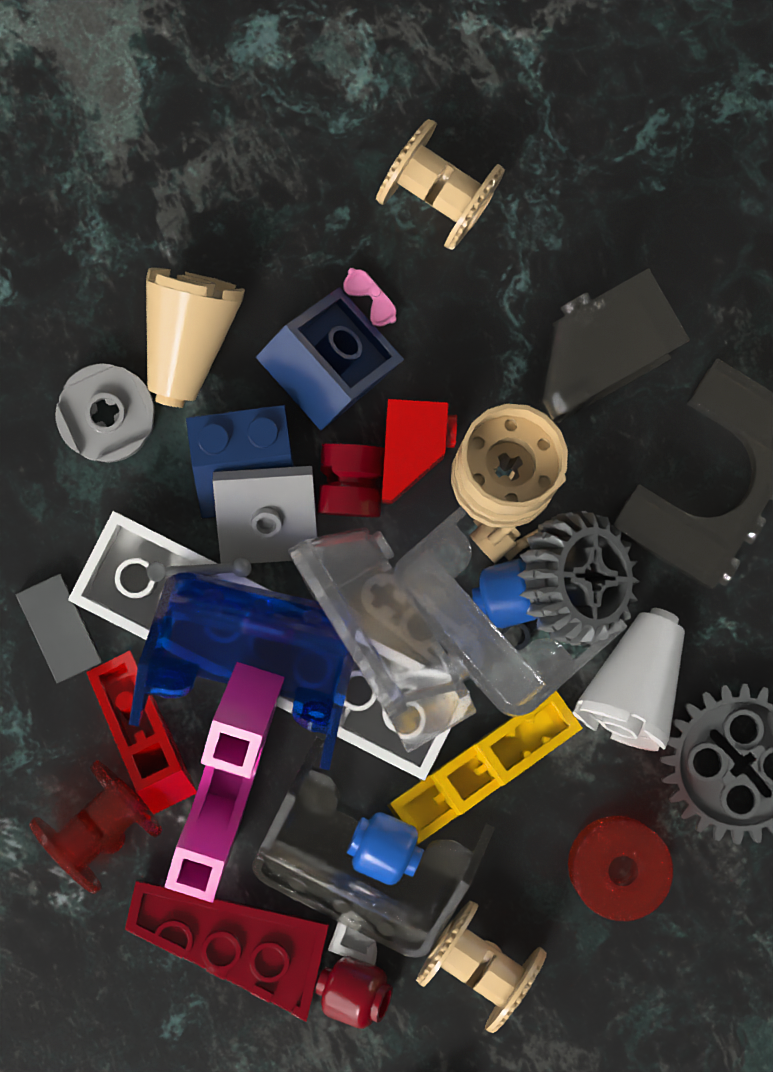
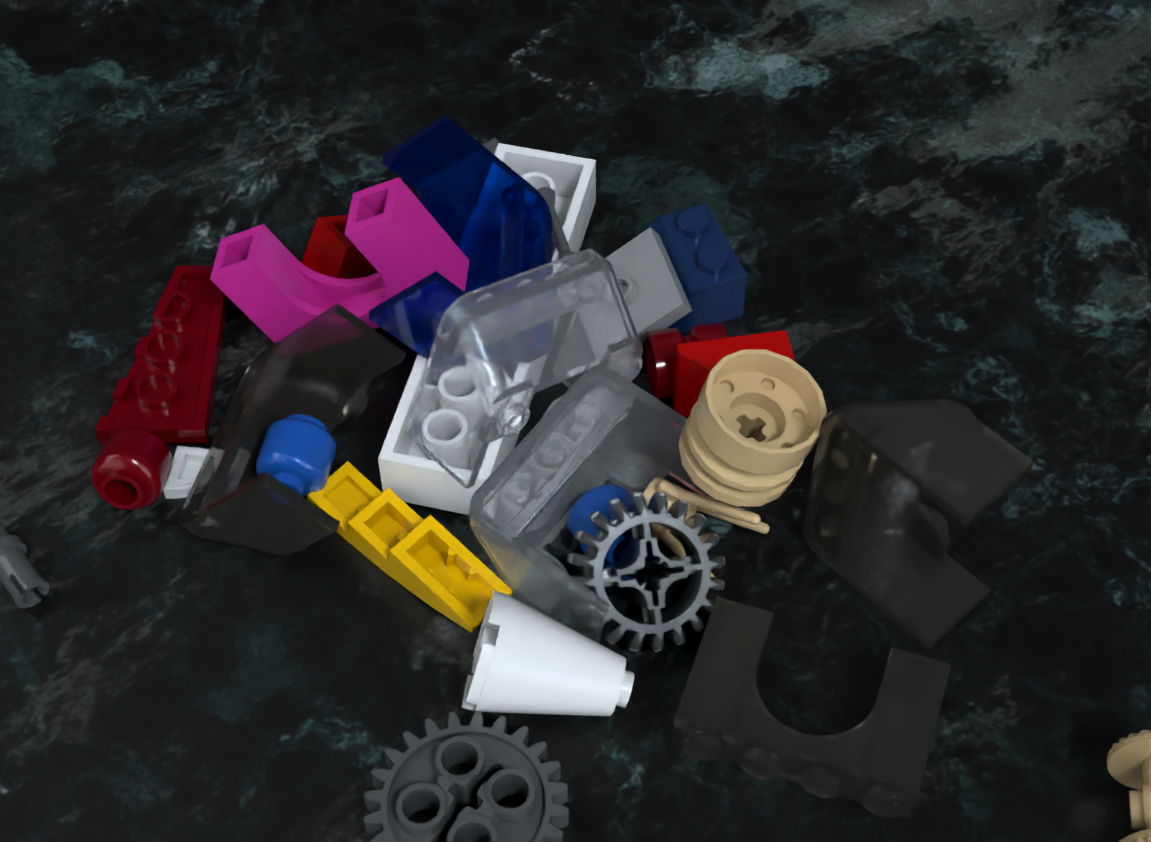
camera: 75 degrees right, 35 degrees down
(78, 404) = (678, 190): light grey plate -> none
(95, 828) = (252, 197): clear red hose -> none
(185, 331) = (790, 201): tan cone -> none
(329, 358) = (822, 316): dark blue slope -> none
(361, 284) = (894, 348): bright pink piece -> none
(439, 184) = (1021, 392): tan hose -> none
(482, 967) = (173, 577): tan hose -> none
(643, 885) = (311, 681): clear red hose -> none

